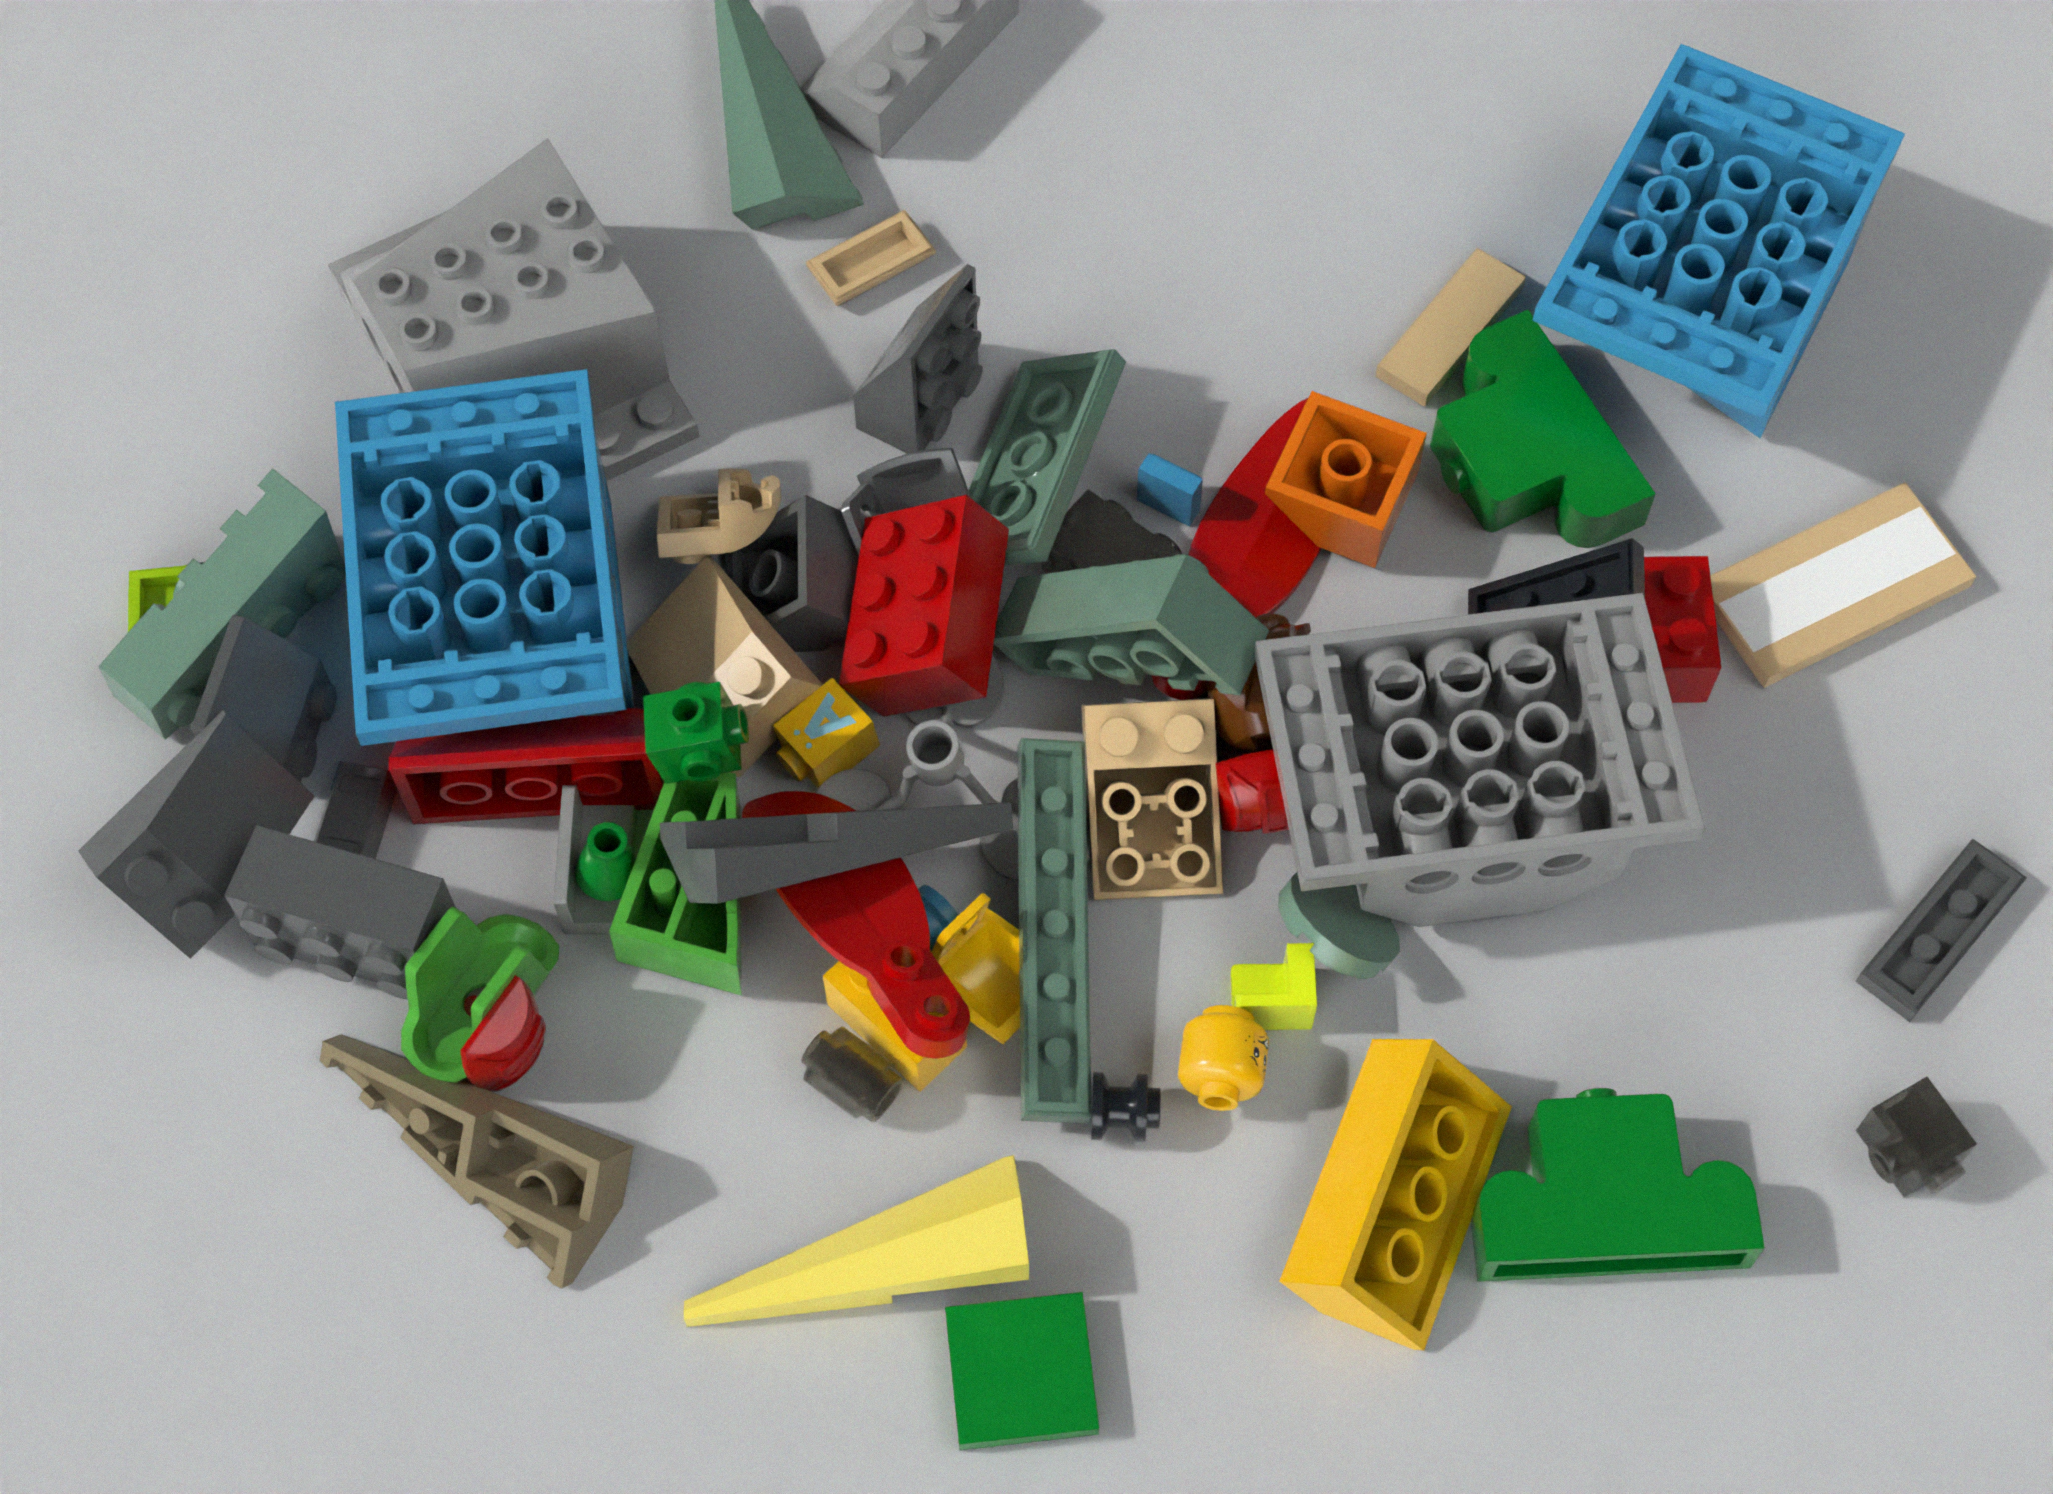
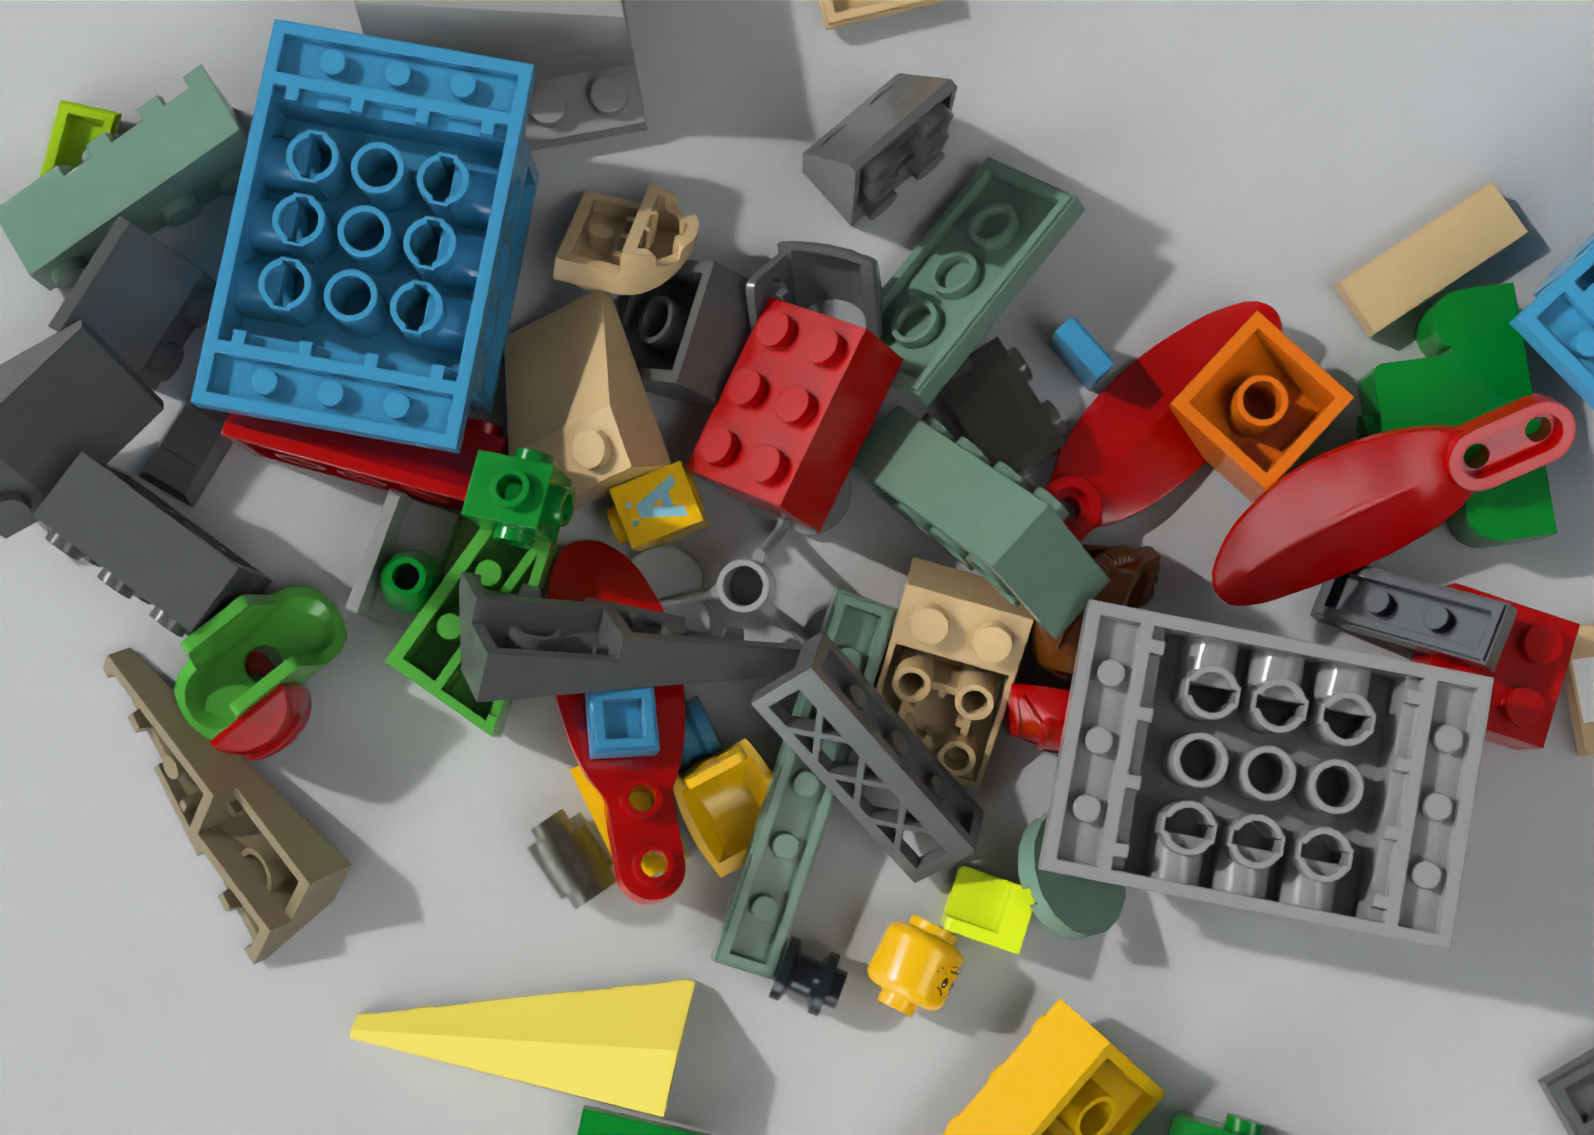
camera: 20 degrees right, 20 degrees up
(859, 902) = (622, 723): none -> dark azure tile
(1123, 858) = (885, 744): none -> dark grey fence
(1484, 508) = (1378, 498): none -> red plant

